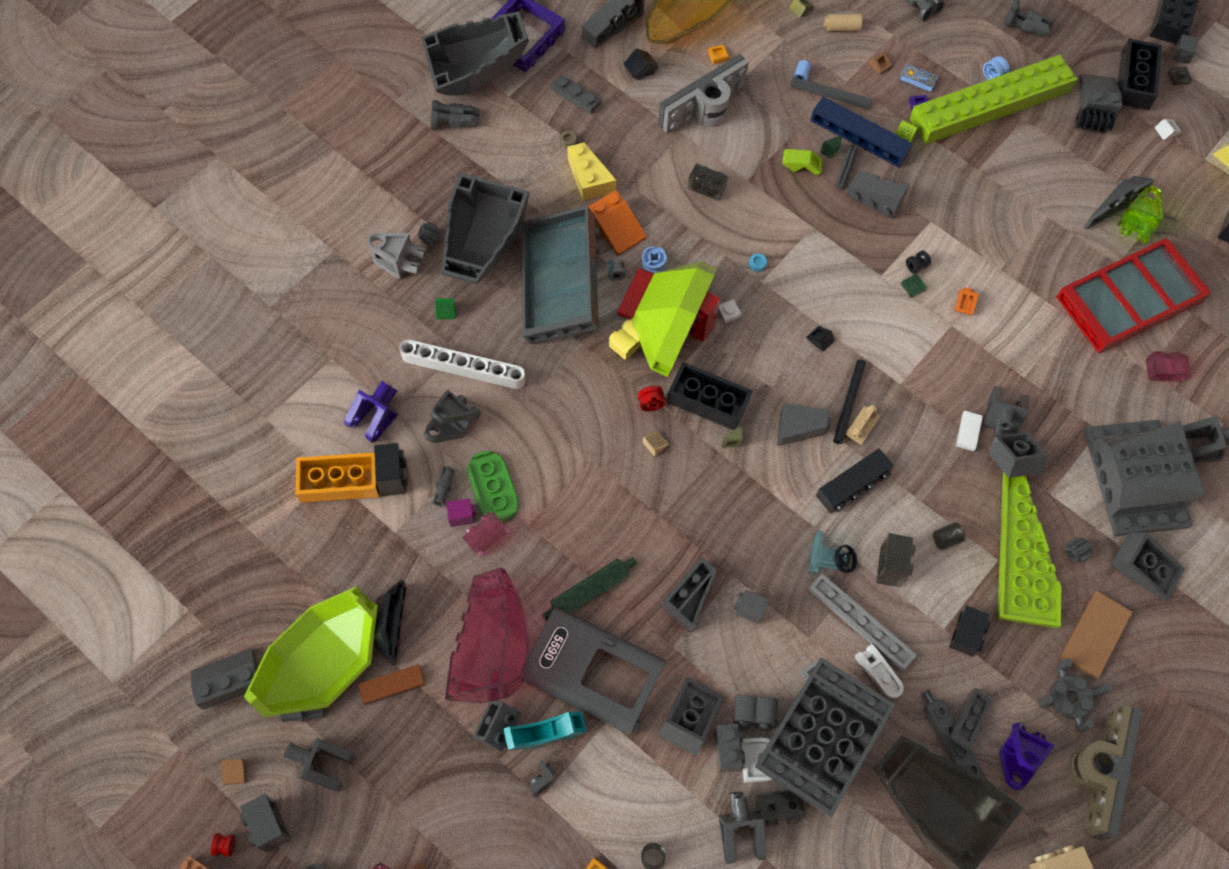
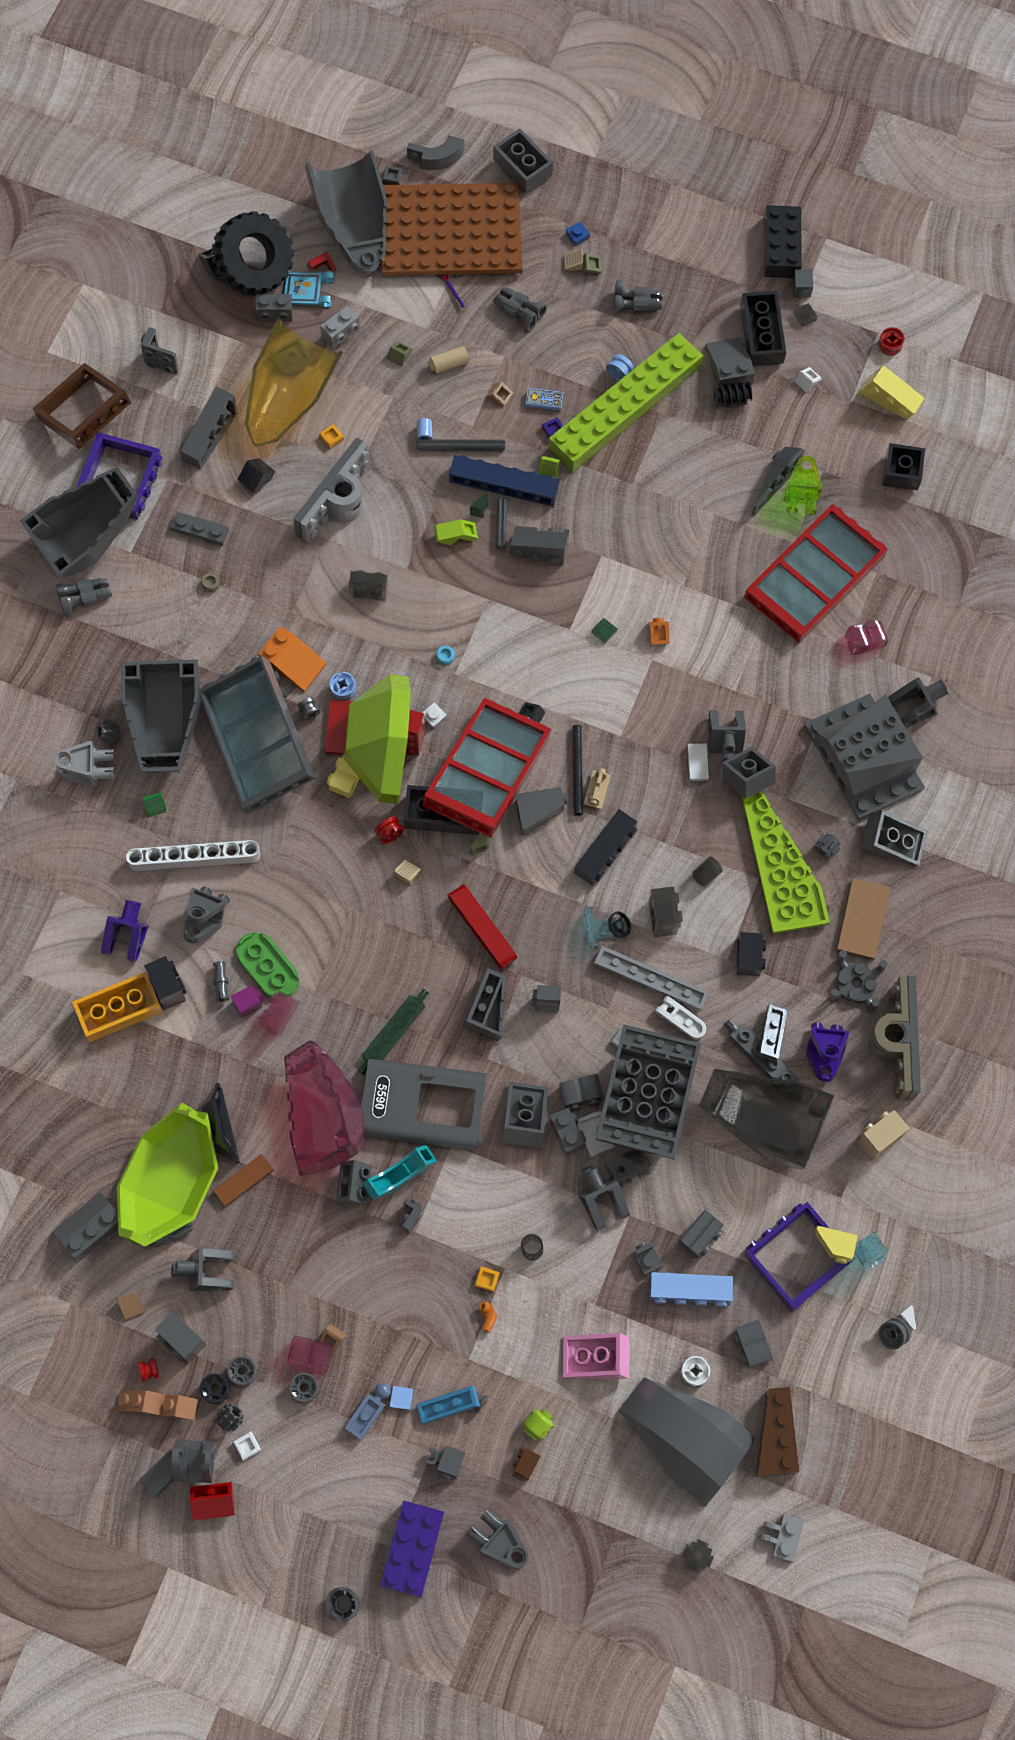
camera: 20 degrees left, 5 degrees up
(589, 173) = (245, 613): light yellow wedge -> none
(710, 517) = (482, 926): none -> red beam
(763, 370) = (487, 767): none -> window
(917, 262) = (601, 605): black wheel -> none

